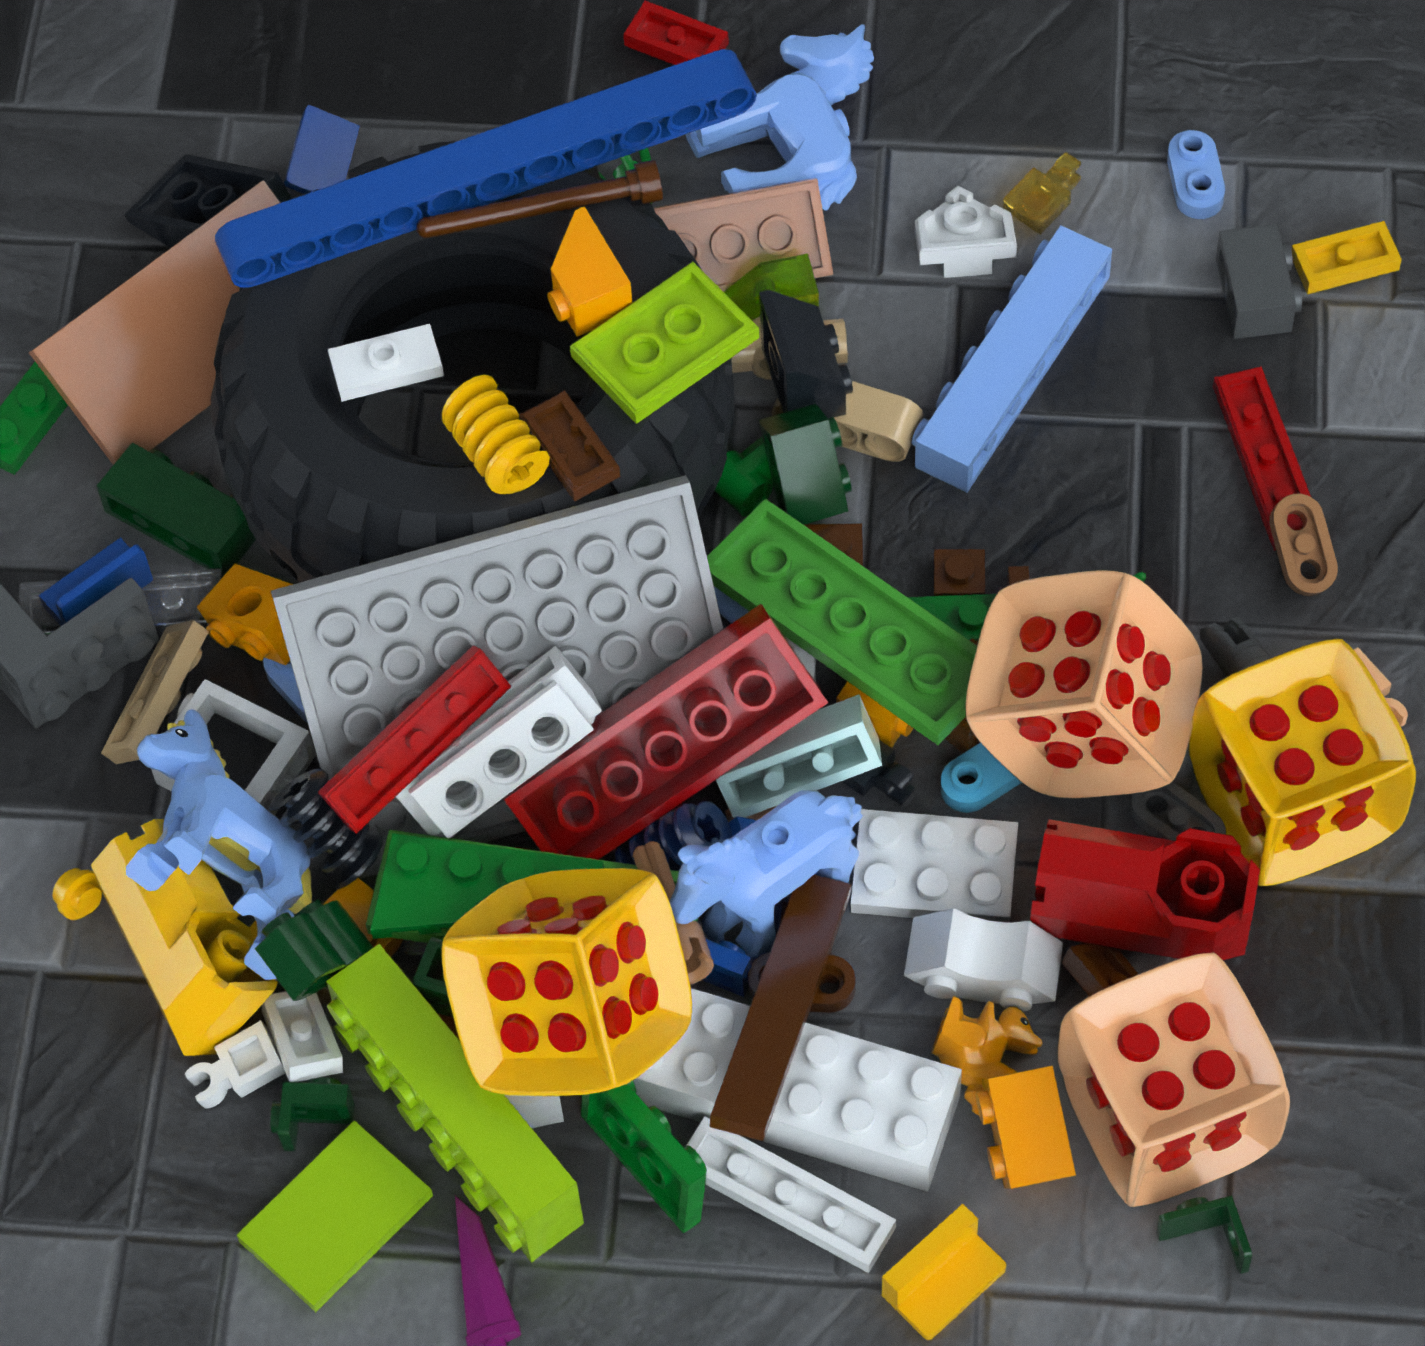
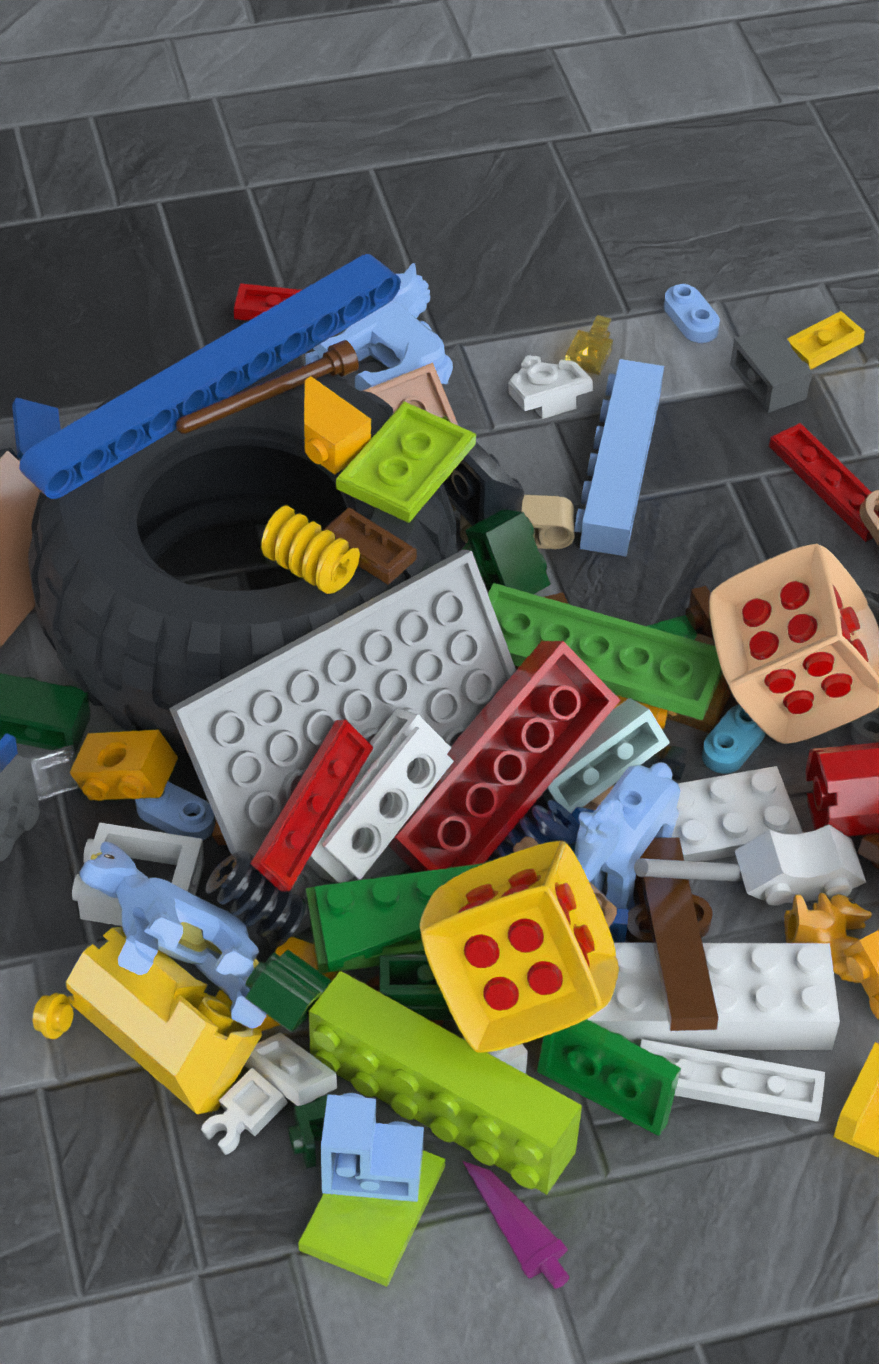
camera: 25 degrees left, 10 degrees down
(156, 690) = (56, 848): tan plate -> none
(334, 1163) = (366, 1155): none -> light blue brick
(385, 362) = (193, 523): white plate -> none
(830, 932) = (687, 870): none -> light grey bar
(959, 572) = (648, 607): reddish brown plate -> none

